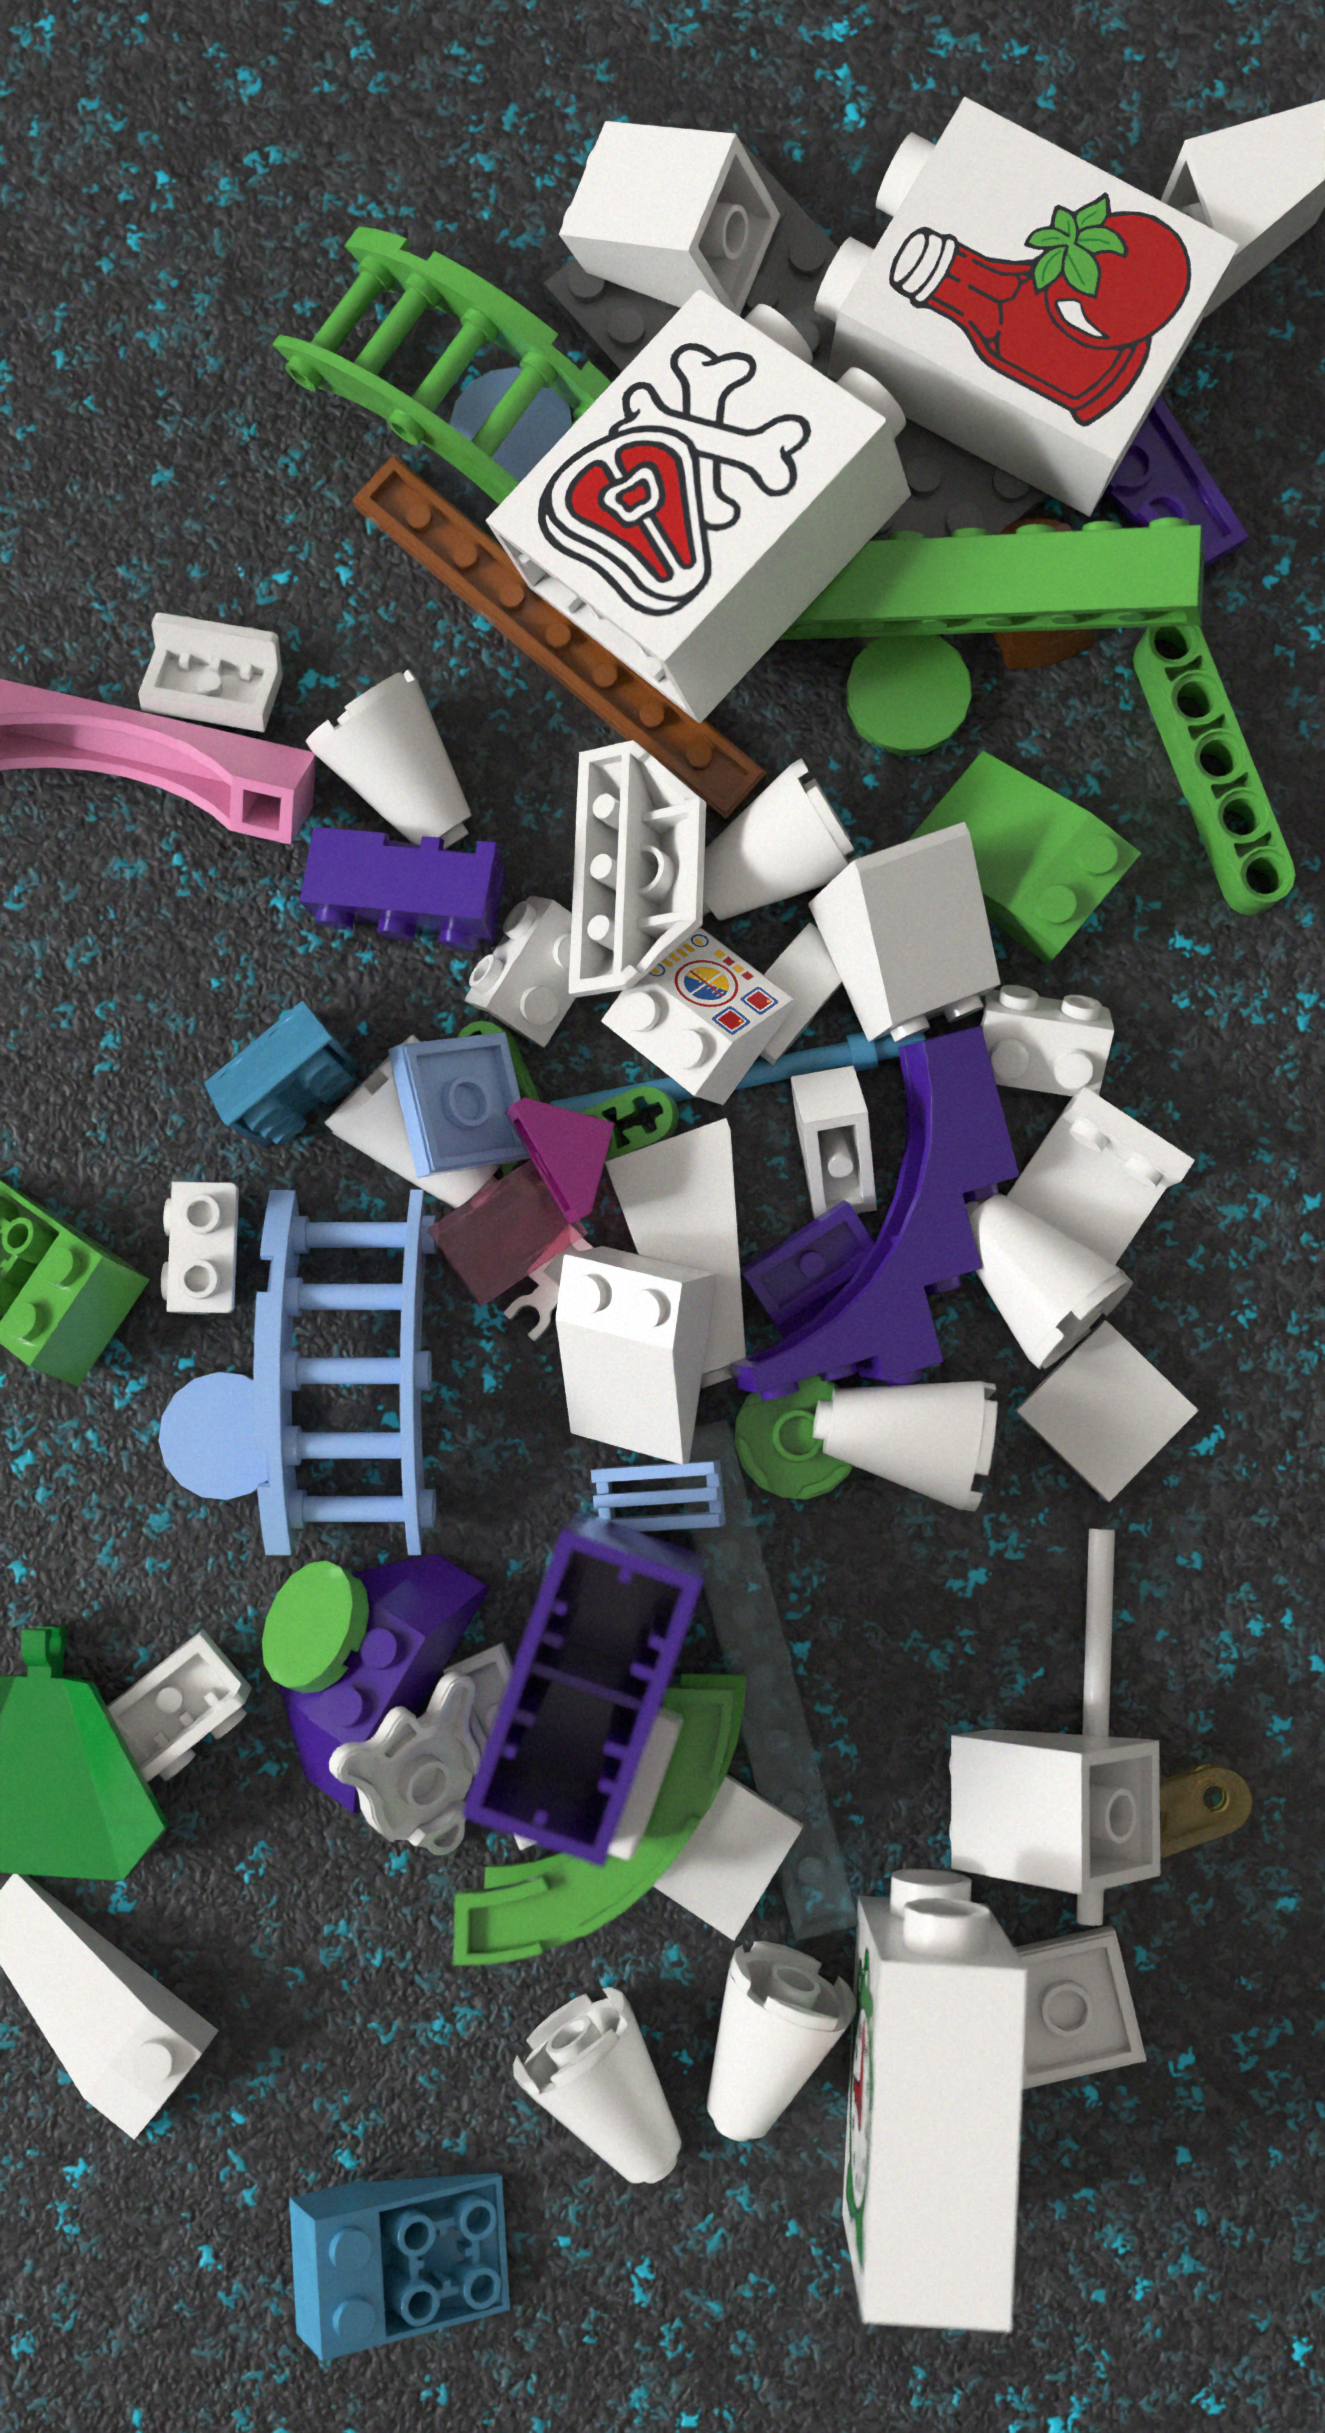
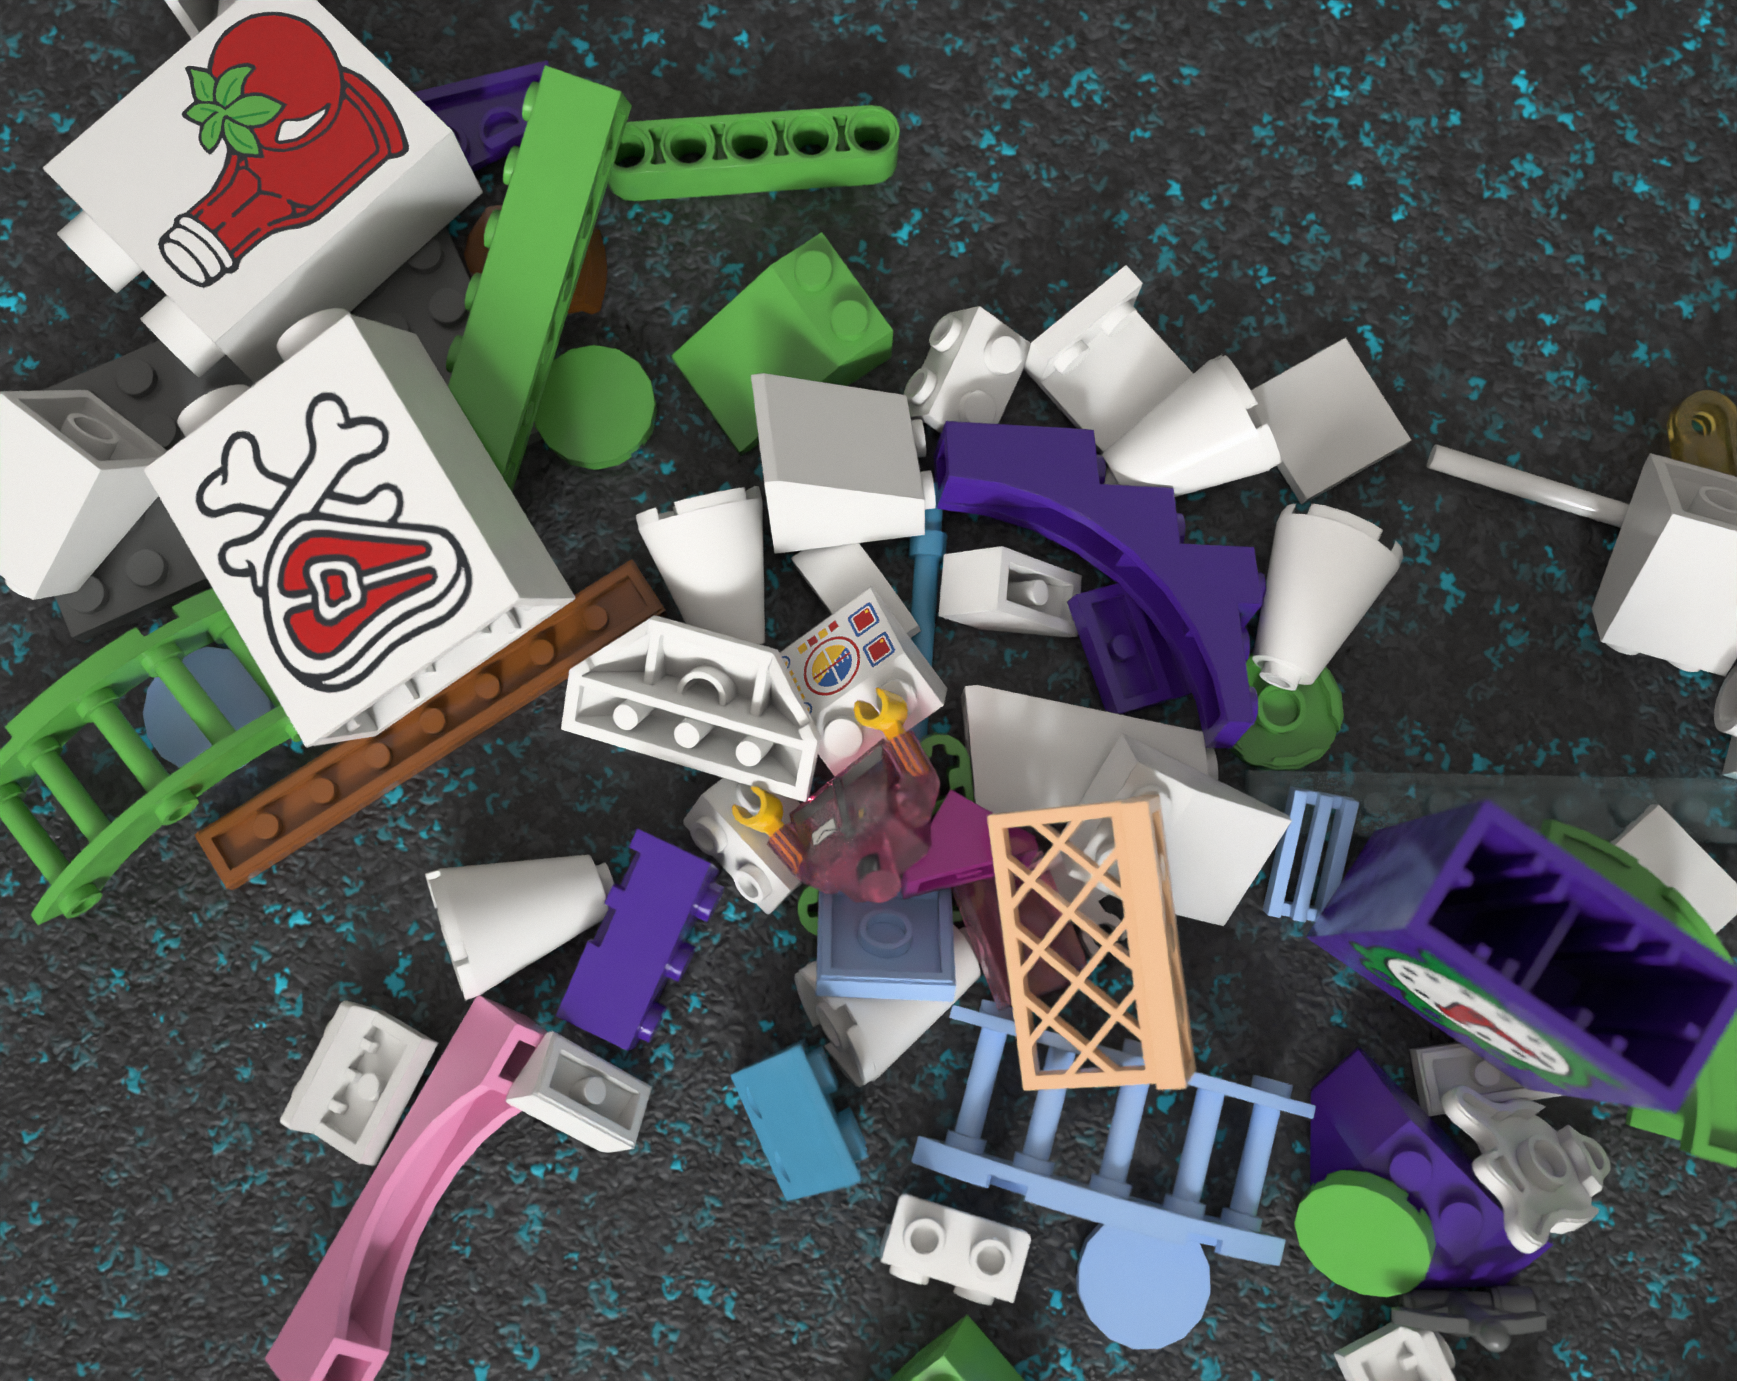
camera: 85 degrees left, 5 degrees down
(251, 873) = (581, 1095): none -> white slope
(268, 1742) = (1483, 1315): none -> dark grey piece
(519, 1339) = (1151, 936): none -> light nougat fence
(562, 1050) = (864, 821): none -> clear pink torso

